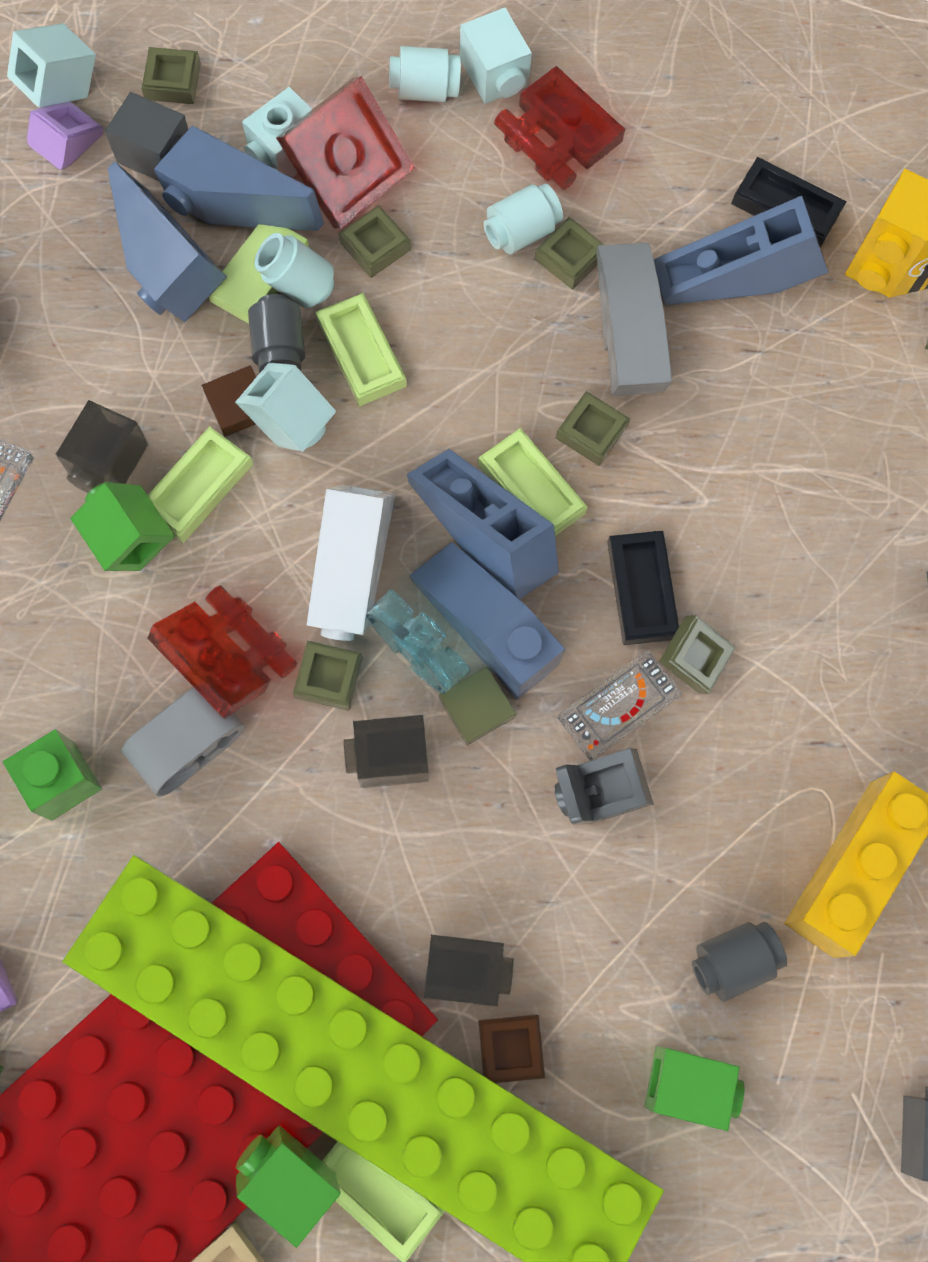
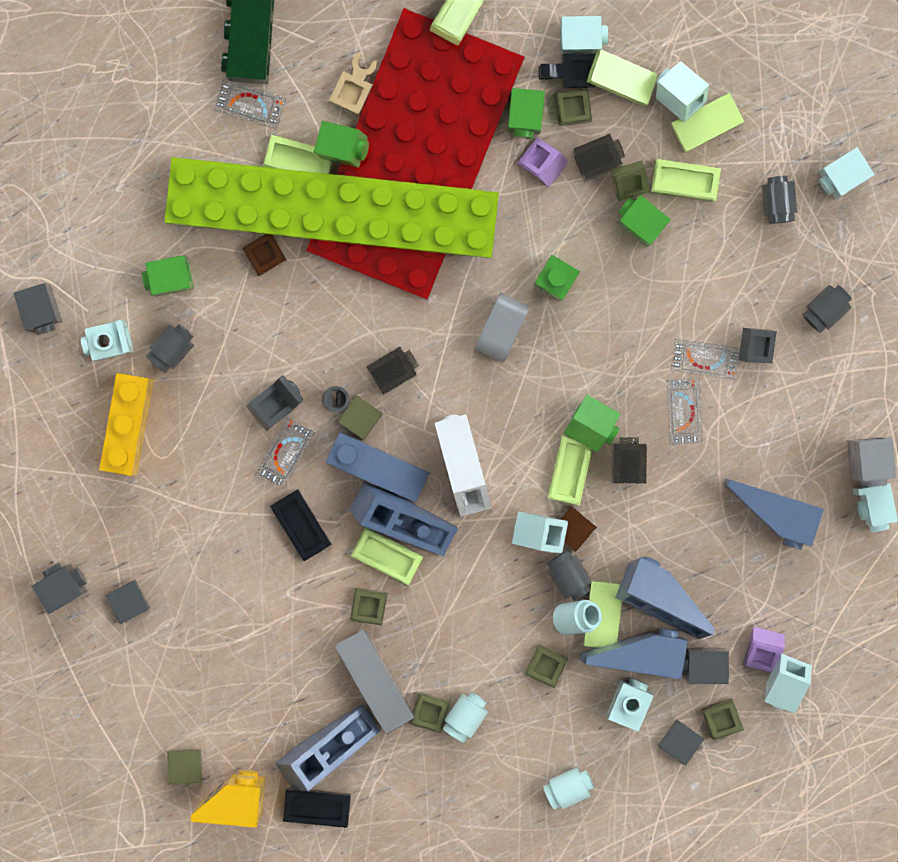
camera: 160 degrees right, 15 degrees up
(212, 660) = (509, 375): clear red plate -> none
(242, 70) = (681, 742): none -> dark grey tile
(328, 675) = (446, 397): olive tile -> none
(346, 152) = (584, 706): clear red plate -> none
(361, 349) = (521, 593): yellowish green tile -> none
(417, 641) = (403, 431): clear light blue plate -> none
(467, 970) = (302, 279): clear smoke brick -> none
(493, 745) = (342, 399): none -> dark grey hinge
(495, 55) = (531, 819): light aqua brick -> none
(569, 117) = (467, 799): clear red plate -> none
(697, 654) = (256, 499): olive tile -> none
(821, 1022) = (119, 344): none -> light aqua brick

